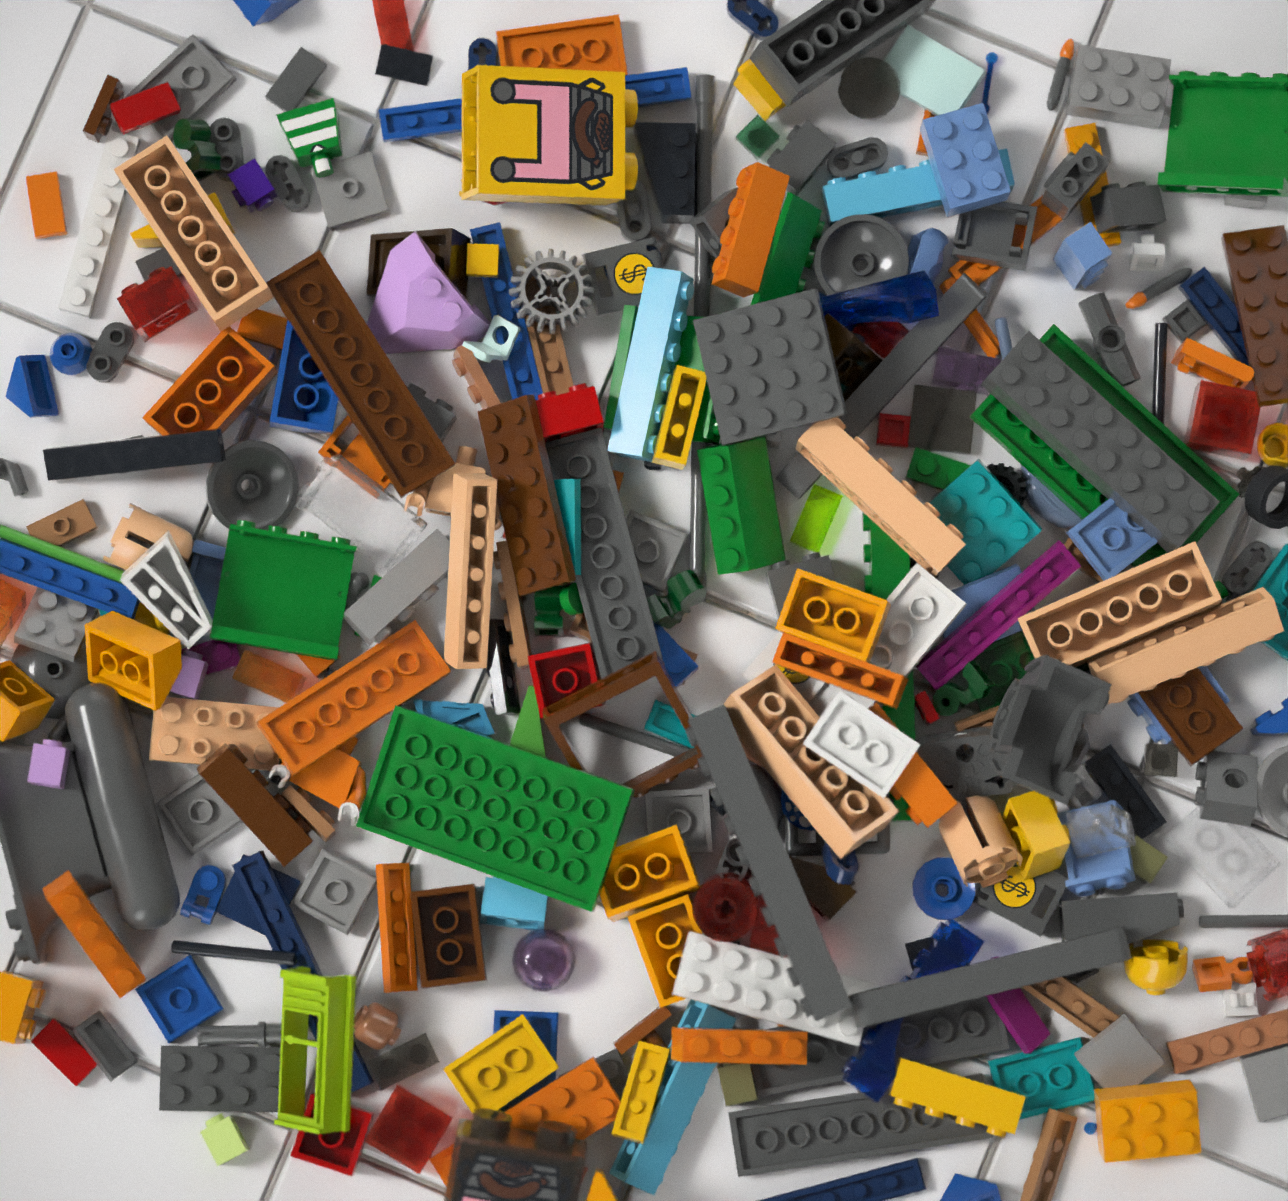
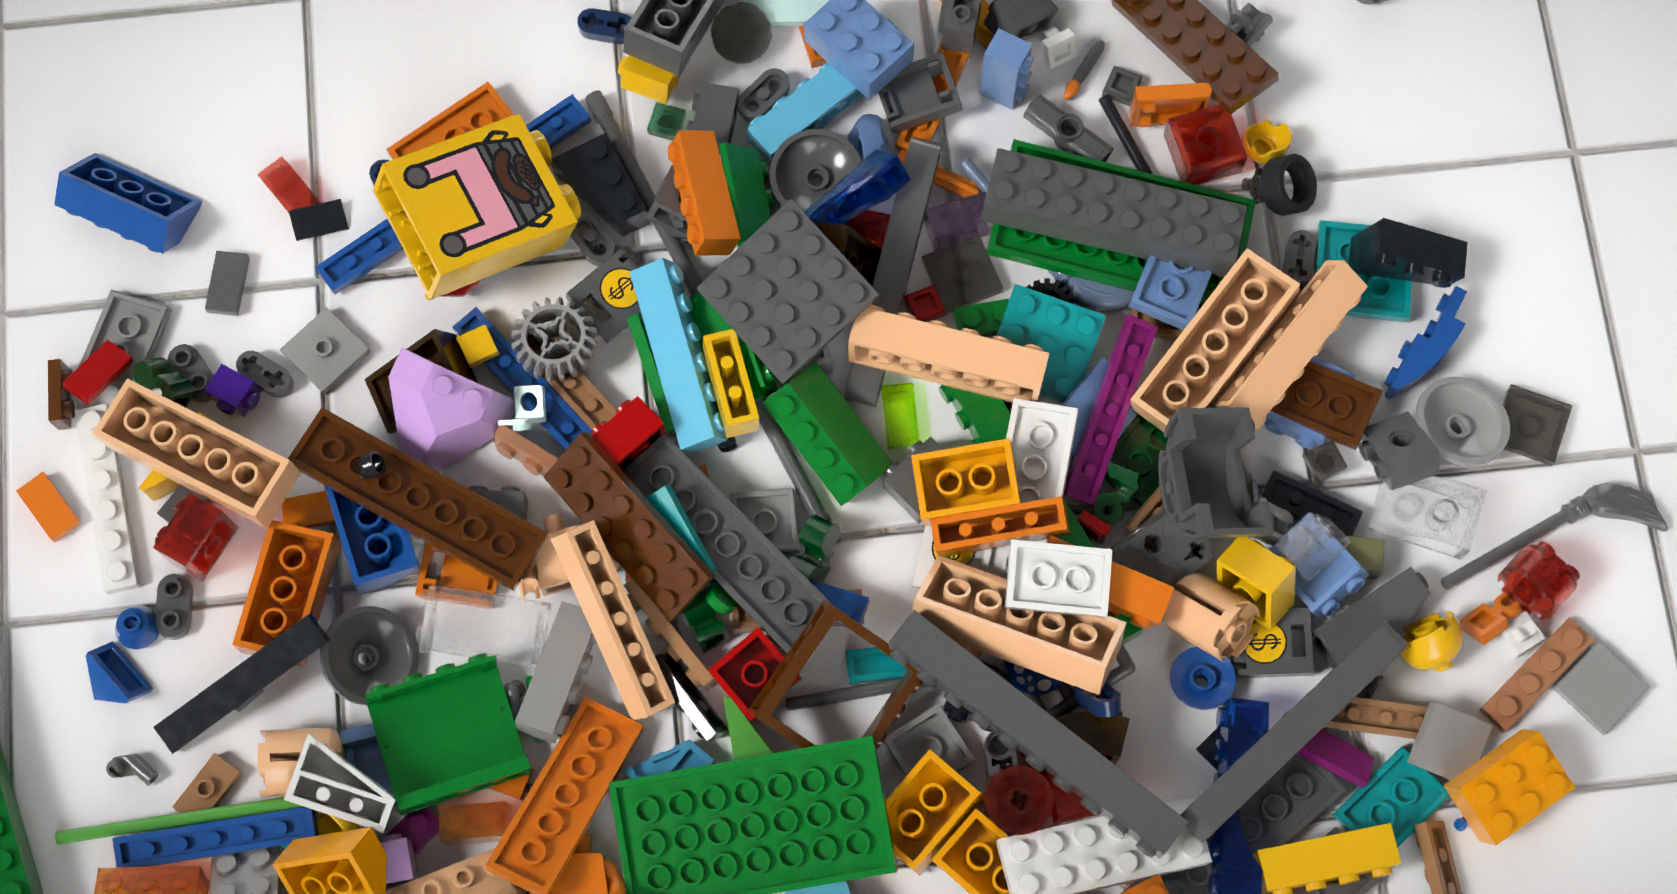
camera: 25 degrees left, 10 degrees down
(313, 135) = (266, 319): green torso -> none
(335, 326) = (371, 465): none -> black hinge
(1217, 311) = (1144, 61): dark blue plate -> none

